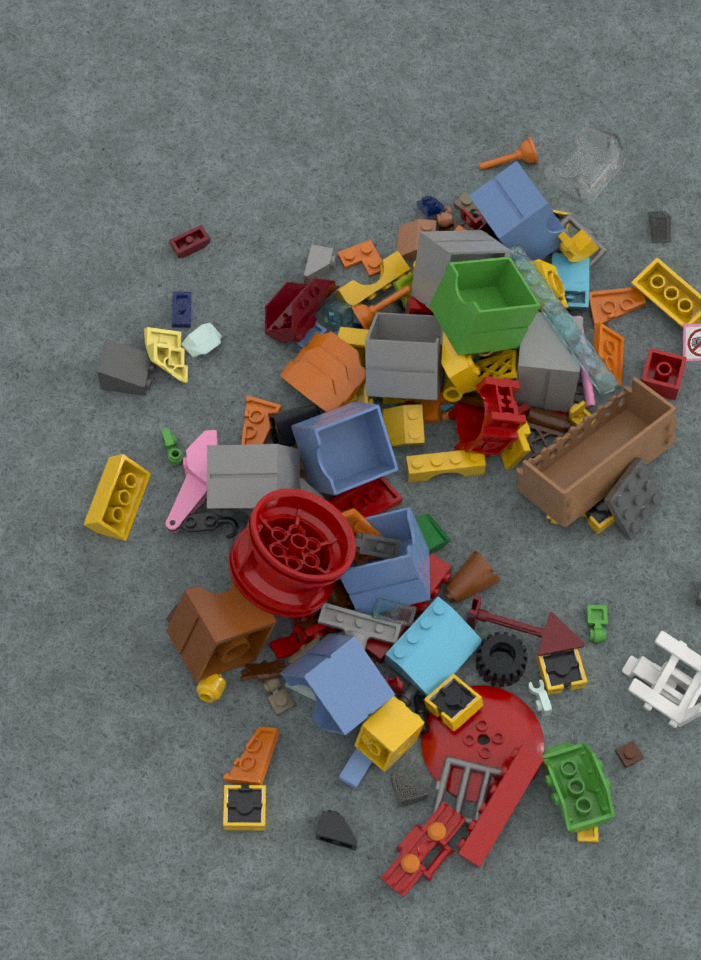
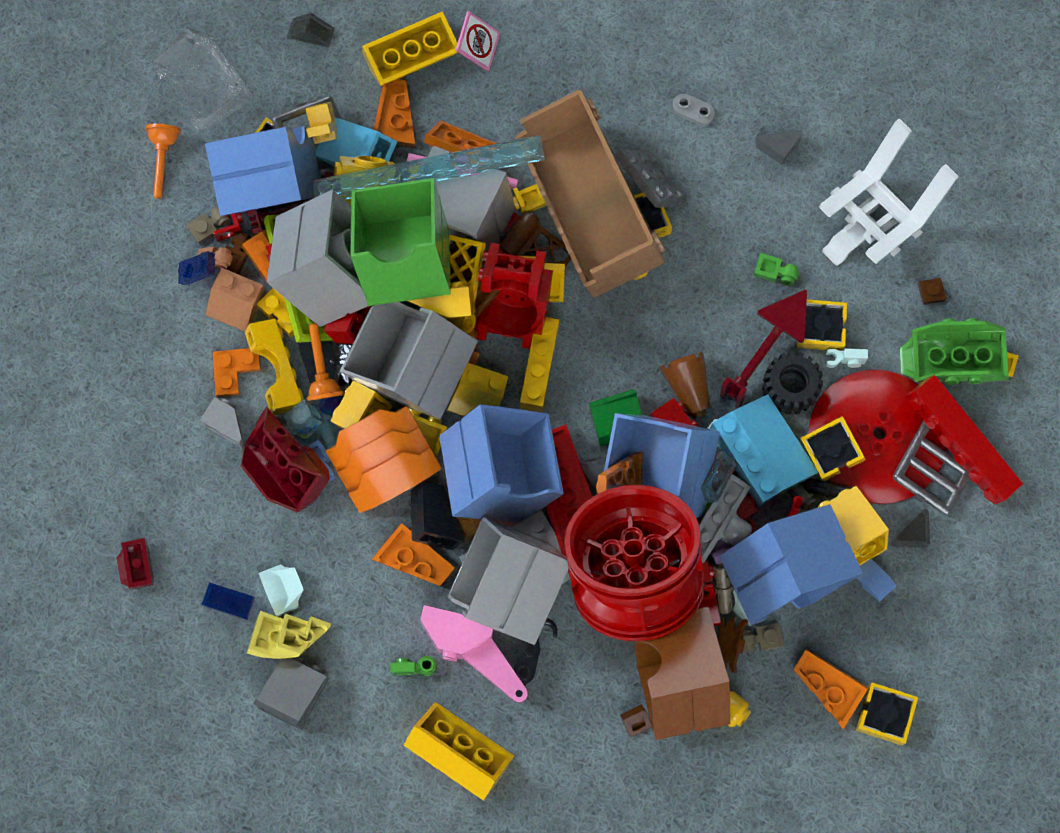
camera: 70 degrees left, 10 degrees up
(335, 830) = (937, 623): black slope -> none
(377, 545) = (641, 464): dark grey hinge -> none
(416, 846) = (980, 540): red piece -> none
(663, 372) = (504, 95): red brick -> none

